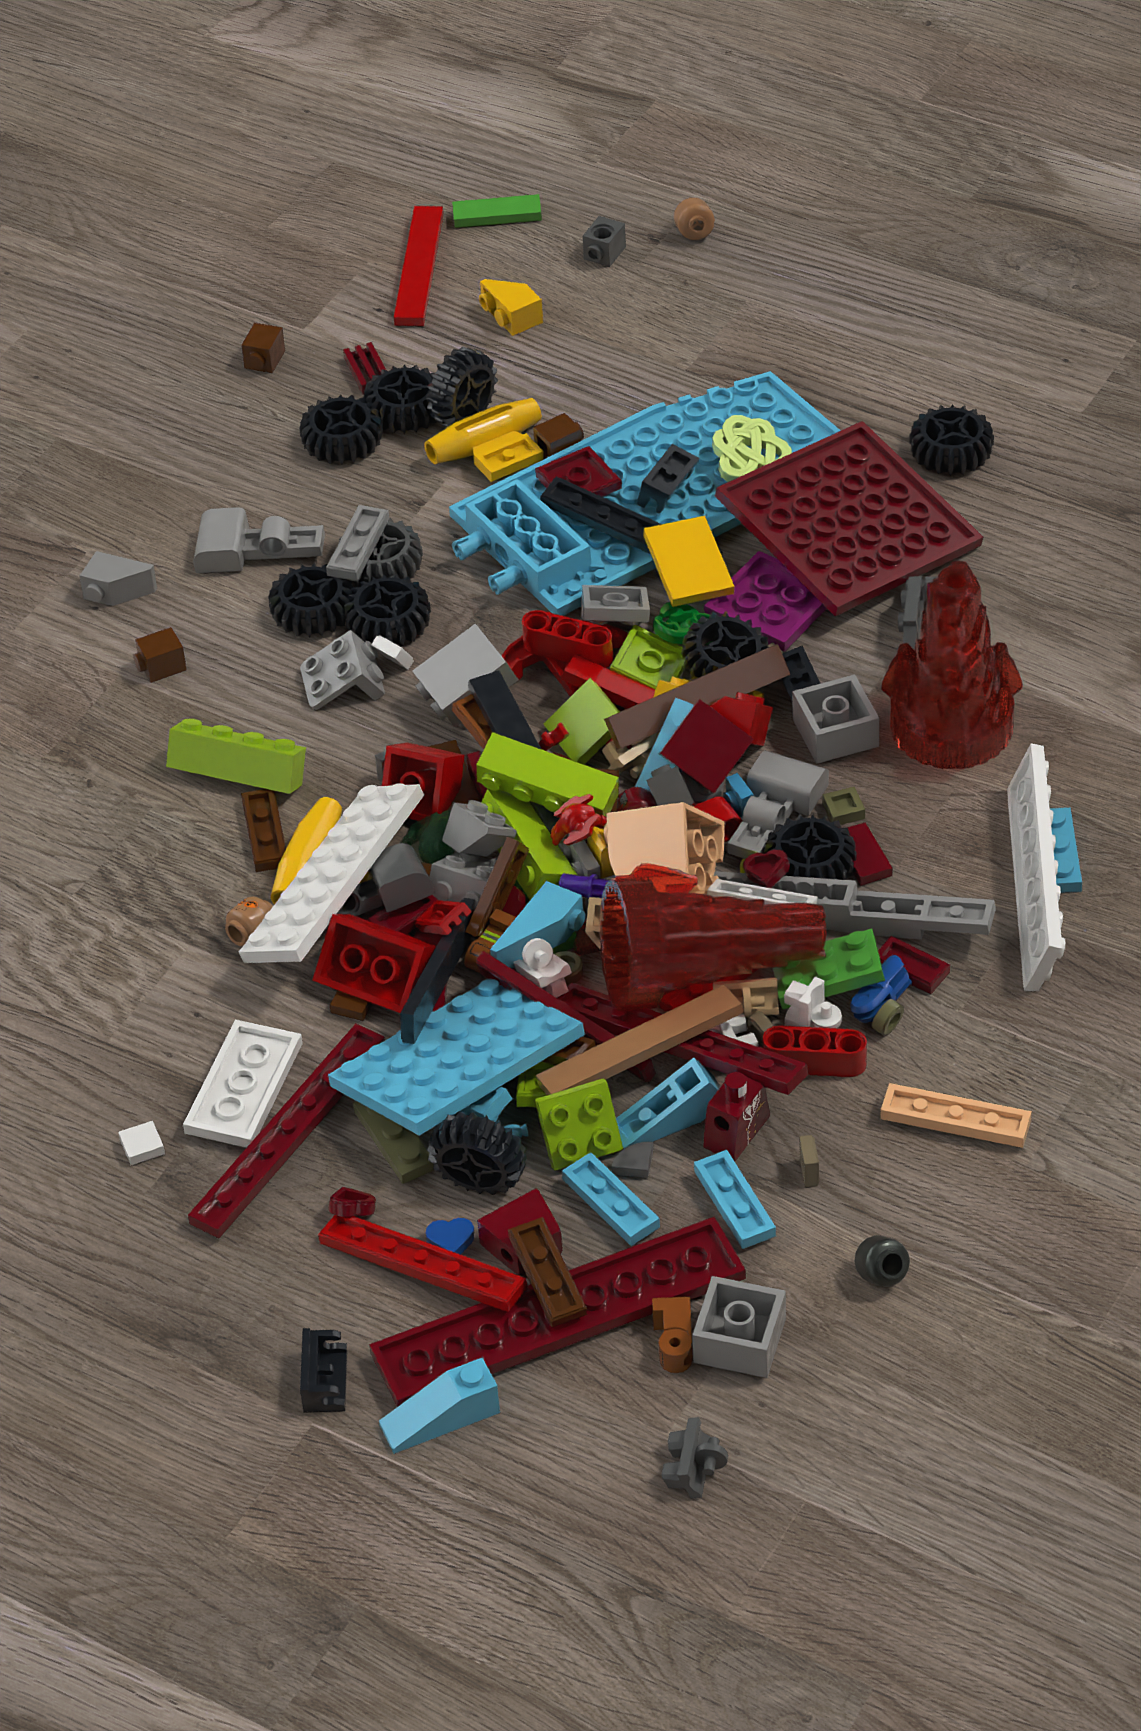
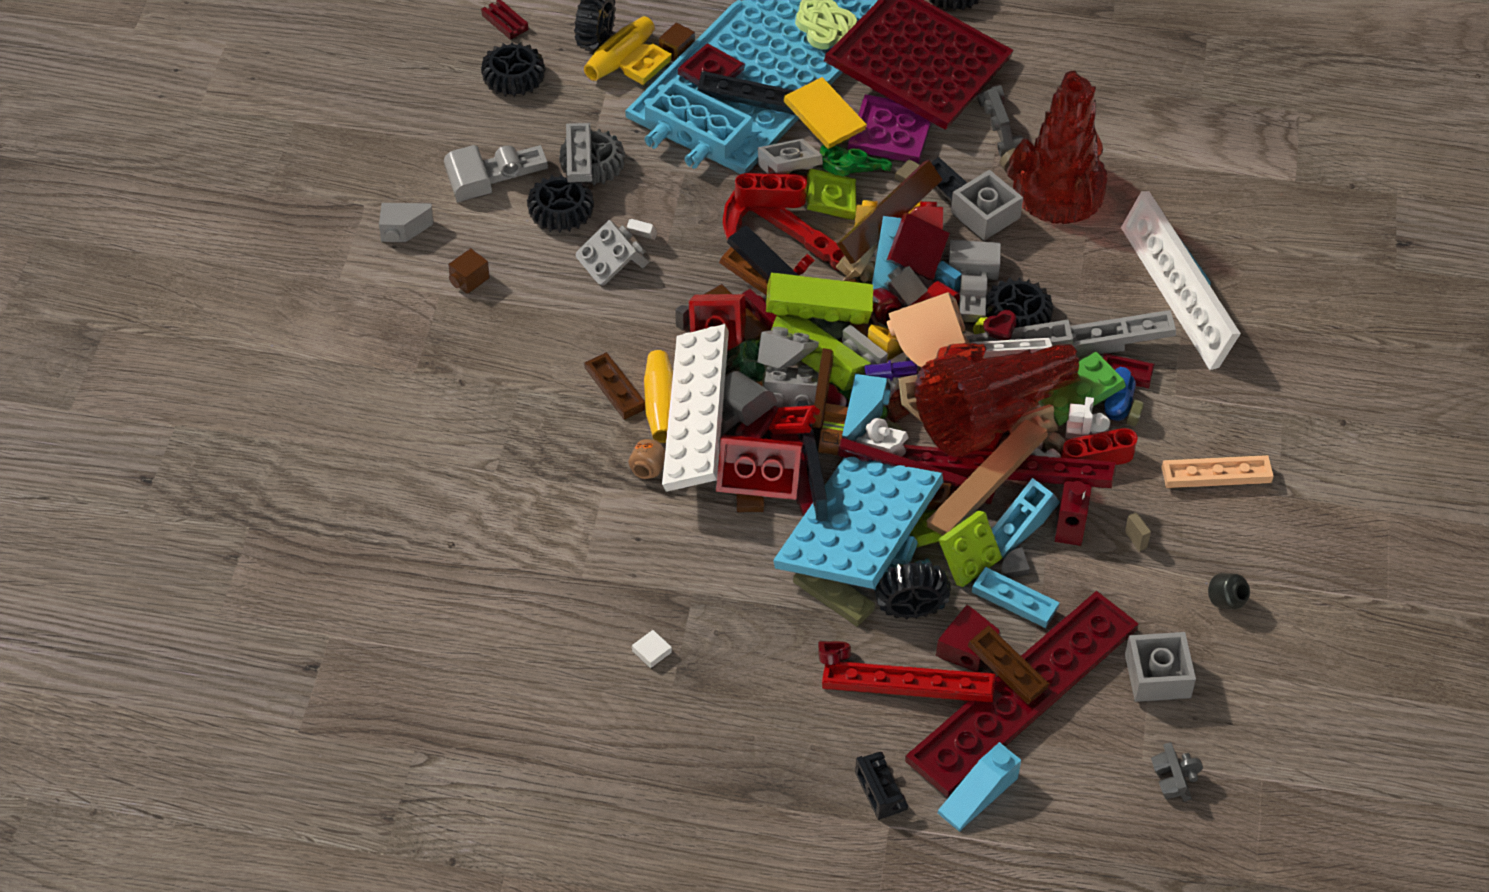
camera: 25 degrees left, 5 degrees up
(236, 756) = (570, 335): lime brick -> none
(242, 1083) = (705, 583): white plate -> none
(263, 347) = (421, 19): reddish brown brick -> none
(278, 1138) = (755, 613): dark red plate -> none
(388, 609) = (621, 193): black gear -> none
(401, 398) = (549, 34): black gear -> none
(448, 671) = (706, 234): light grey brick -> none
(451, 1235) = (915, 656): blue tile -> none
(576, 820) = (860, 323): red piece -> none
(584, 720) = (817, 242): lime tile -> none
(617, 687) = (815, 217): red tile -> none
(666, 477) = (779, 54): black hinge -> none
(675, 1343) = (1113, 682): dark orange leg -> none
(730, 642) = (883, 170): black gear -> none
(734, 1199) = (1101, 573): medium azure plate -> none
(844, 806) = (1019, 266): olive tile -> none
(871, 861) = (1062, 303): dark red tile -> none

